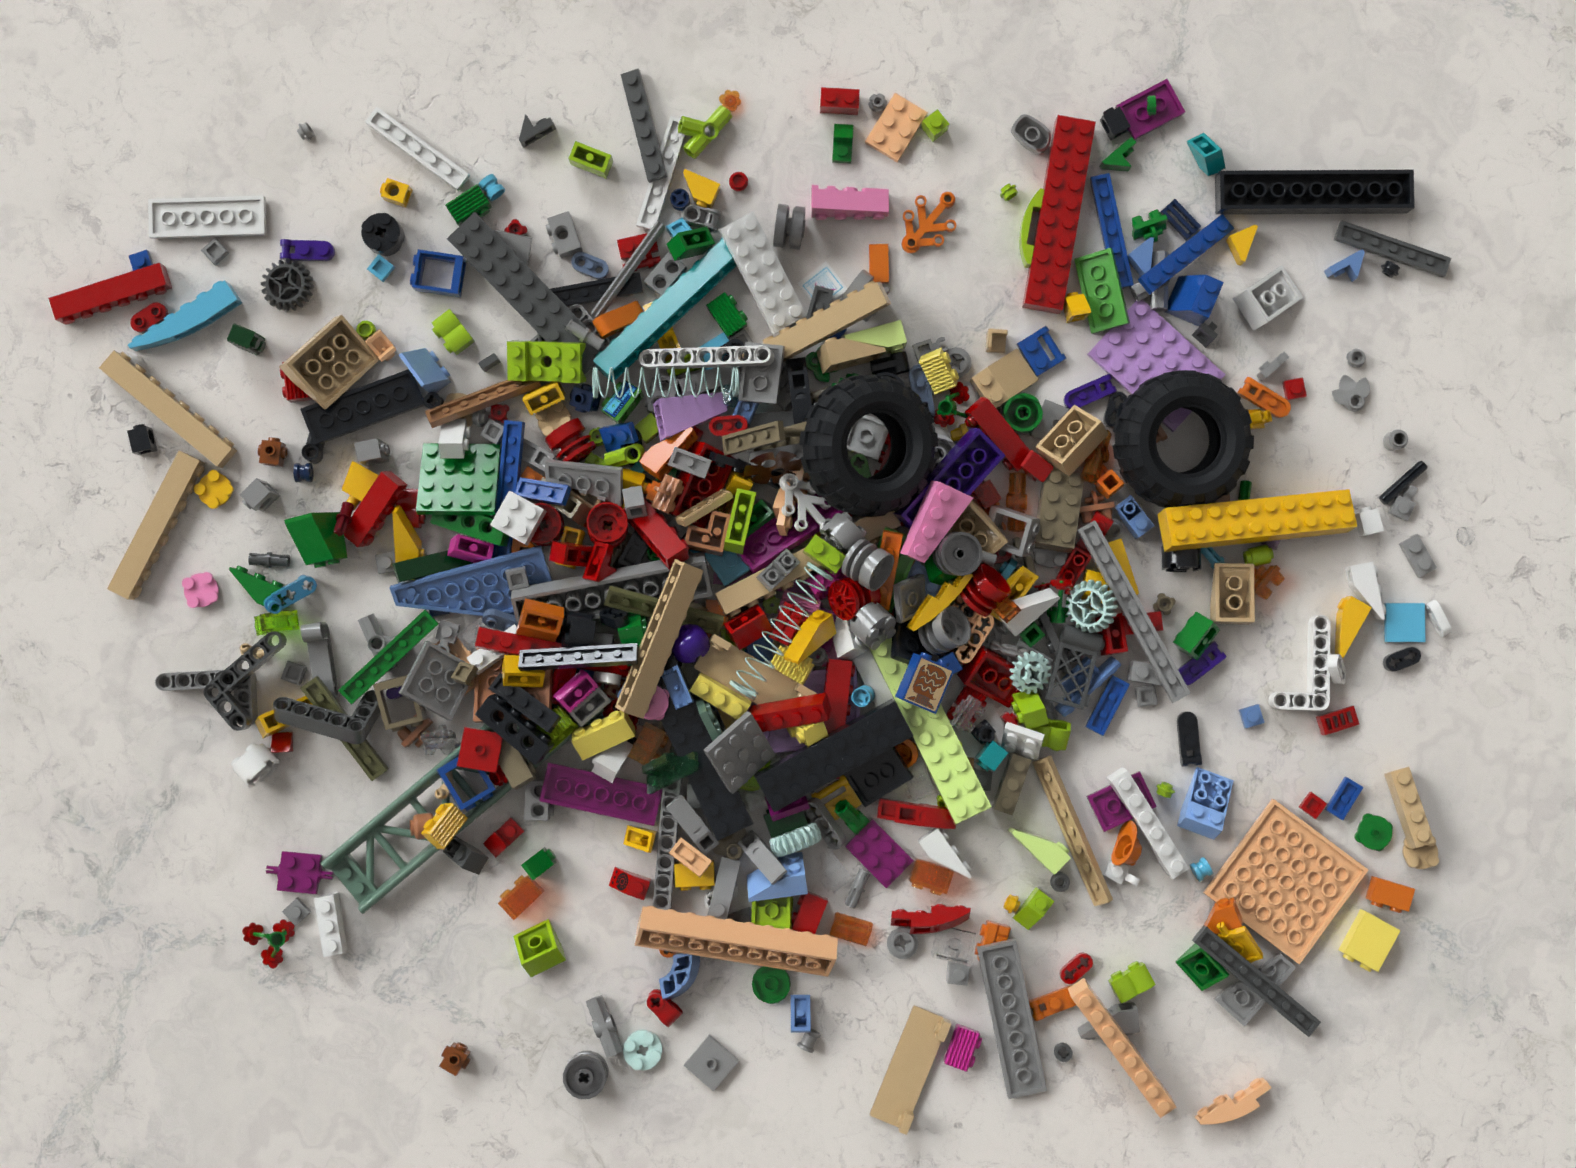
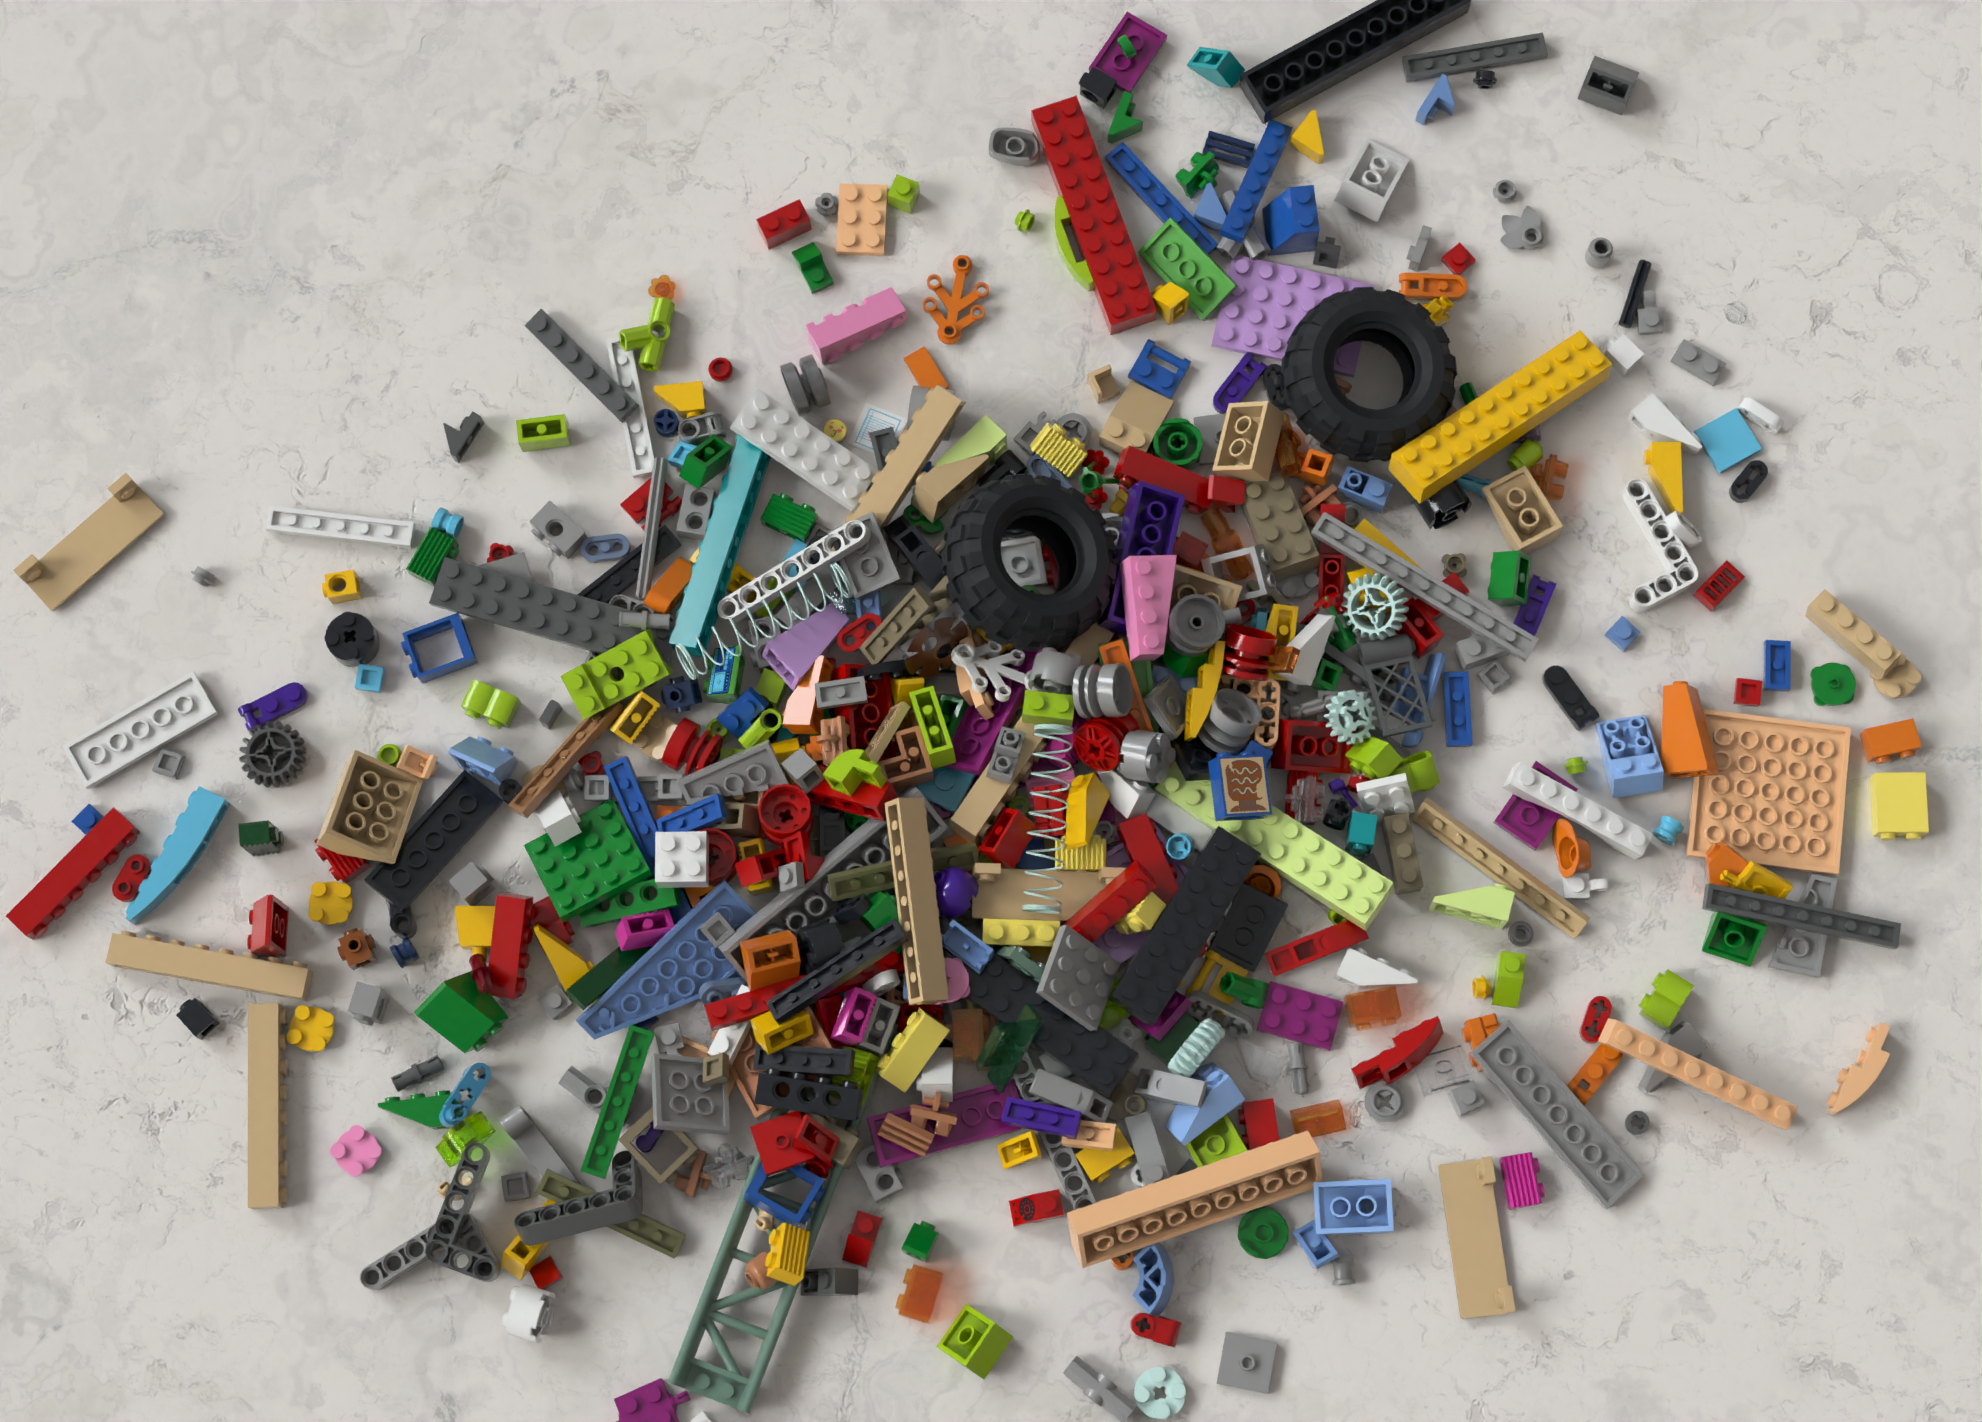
camera: 25 degrees left, 10 degrees down
(220, 406) = (269, 927): none -> red slope
(241, 66) = (91, 544): none -> tan bracket
(272, 410) = (330, 902): none -> yellow piece
(502, 763) = (816, 1139): none -> red slope
(566, 789) = (905, 1134): none -> nougat tile
(585, 572) = (791, 877): none -> light grey plate
(595, 784) = (943, 1119): none -> nougat hips
(664, 828) = (1041, 1117): none -> dark purple plate
(666, 521) = (851, 769): none -> lime brick
(793, 269) = (835, 429): none -> light yellow tile
(840, 1003) = (1353, 1207): none -> light blue slope
(994, 711) = (1339, 786): none -> dark purple hand
(1252, 811) = (1685, 735): none -> orange slope
(1474, 322) = (1608, 85): none -> dark grey slope

